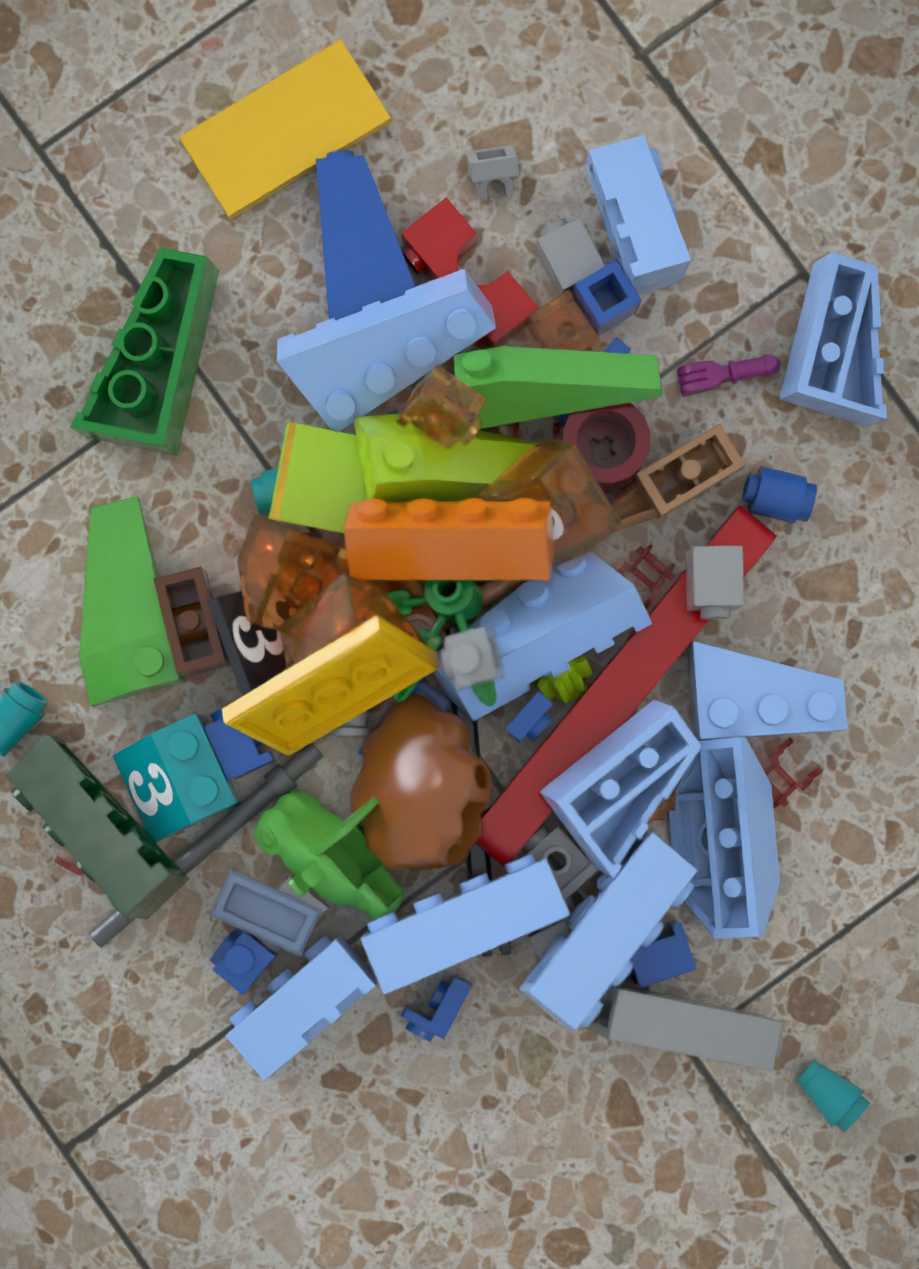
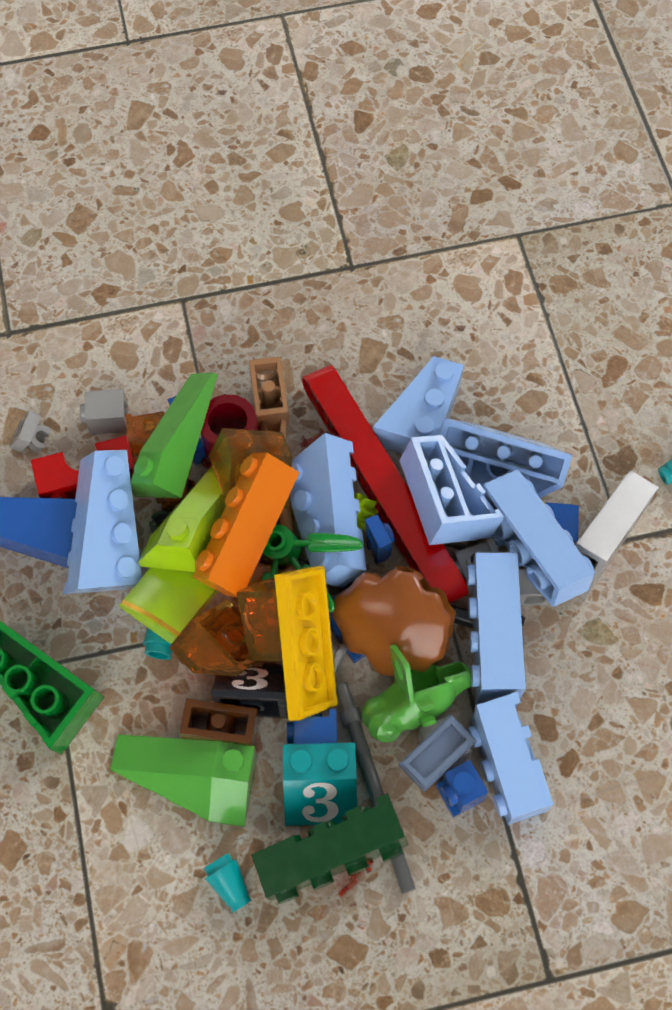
camera: 60 degrees left, 20 degrees down
(443, 408) = (161, 494): clear orange brick -> none
(447, 1003) = (545, 668): blue bracket -> none
(472, 658) = (328, 535): light grey brick -> none
(606, 297) = (140, 394): blue brick -> none
(638, 214) = (103, 363): light blue wedge -> none
(708, 375) = (217, 365): magenta piece -> none
(714, 580) = (341, 397): light grey brick -> none
(779, 495) = (306, 355): blue brick -> none
(780, 798) = (484, 417): clear red piece -> none
(836, 343) = (233, 291): light blue wedge -> none

